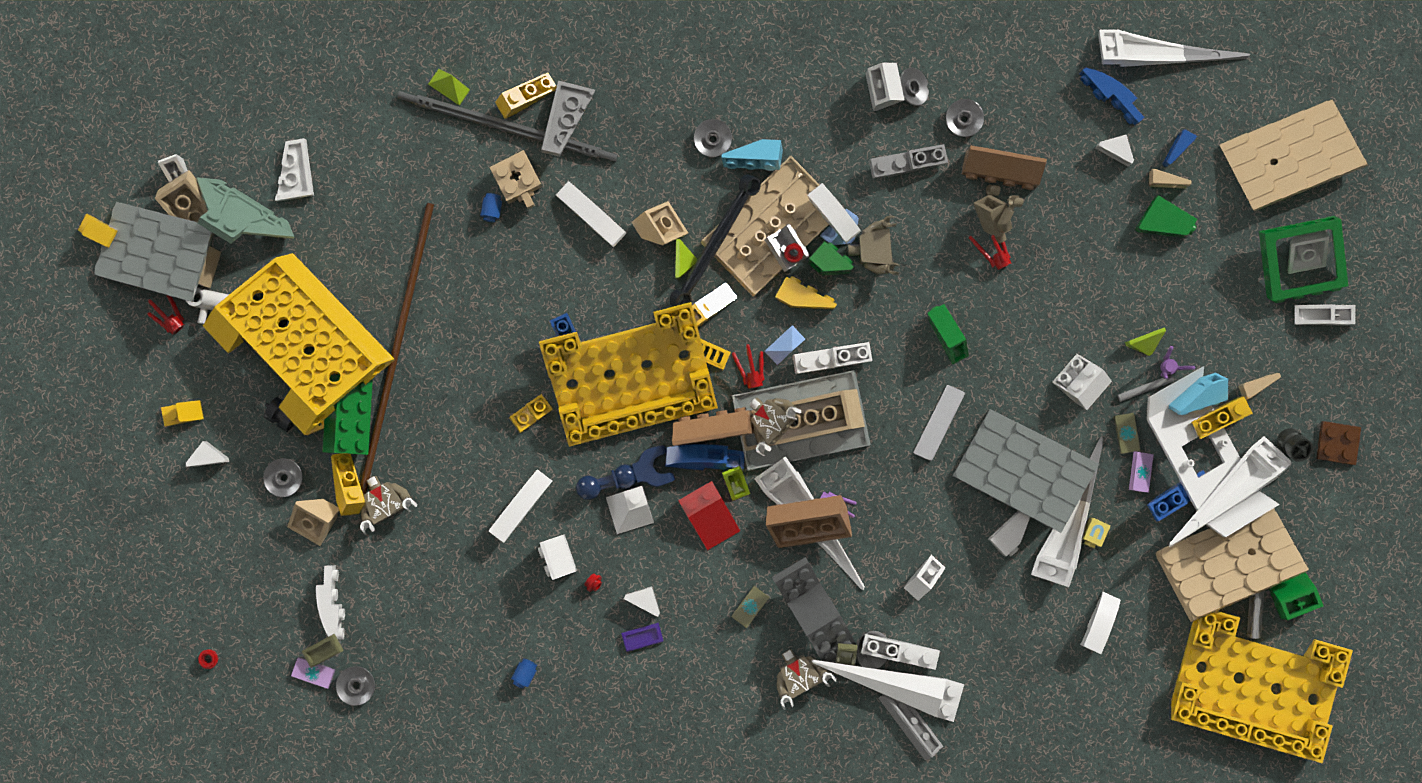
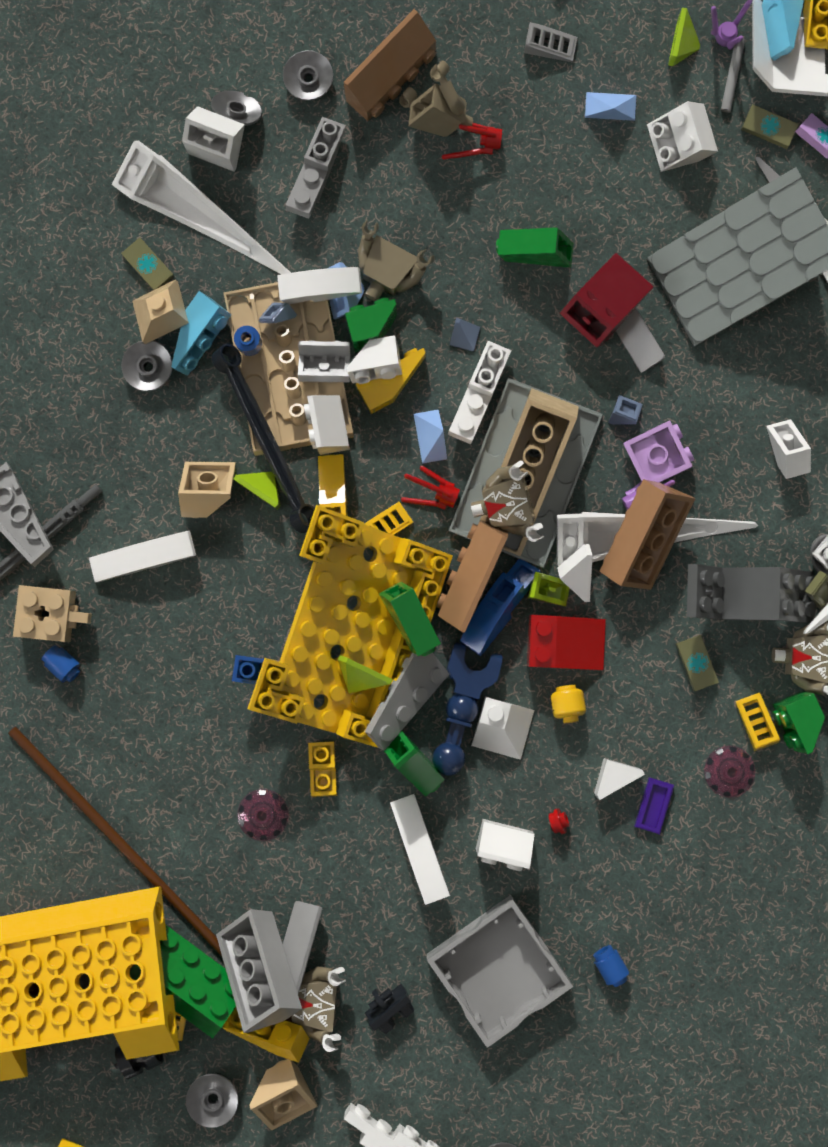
camera: 55 degrees left, 0 degrees up
(382, 453) = (258, 970): none -> light grey slope
(404, 470) = (300, 938): none -> light grey slope
(411, 548) = (387, 1005): none -> black hips
(477, 604) = (499, 970): none -> light grey tile
(485, 401) = (272, 805): none -> clear pink dish
(570, 466) = (414, 764): none -> green slope
(603, 398) = (359, 677): none -> lime slope
(621, 437) = (407, 695): none -> light grey wing
(659, 406) = (410, 618): none -> green slope
(671, 541) = (568, 703): none -> yellow head
(695, 661) = (717, 768): none -> clear pink dish
(727, 682) = (774, 737): none -> yellow slope
(748, 276) = (328, 423): none -> white slope
(752, 124) = (160, 311): none -> tan slope
(756, 492) = (577, 572): none -> white slope
(756, 693) = (801, 720): none -> green slope
(766, 197) = (248, 348): none -> blue brick
(777, 95) = (147, 264): none -> olive tile
(791, 258) = (340, 363): red plate -> none
(798, 198) = (277, 313): none -> sand blue slope
(808, 280) = (376, 360): none -> white slope
(832, 73) = (160, 186): none -> white plate
(863, 325) = (464, 335): none -> sand blue slope
(867, 497) = (659, 453): none -> lavender plate
(879, 458) = (624, 414): none -> sand blue slope
(942, 400) = (606, 300): none -> dark red slope
(1010, 534) = (800, 323): white slope -> none
(1073, 322) = (610, 106): none -> light blue slope
(1092, 248) = (540, 50): none -> light grey slope

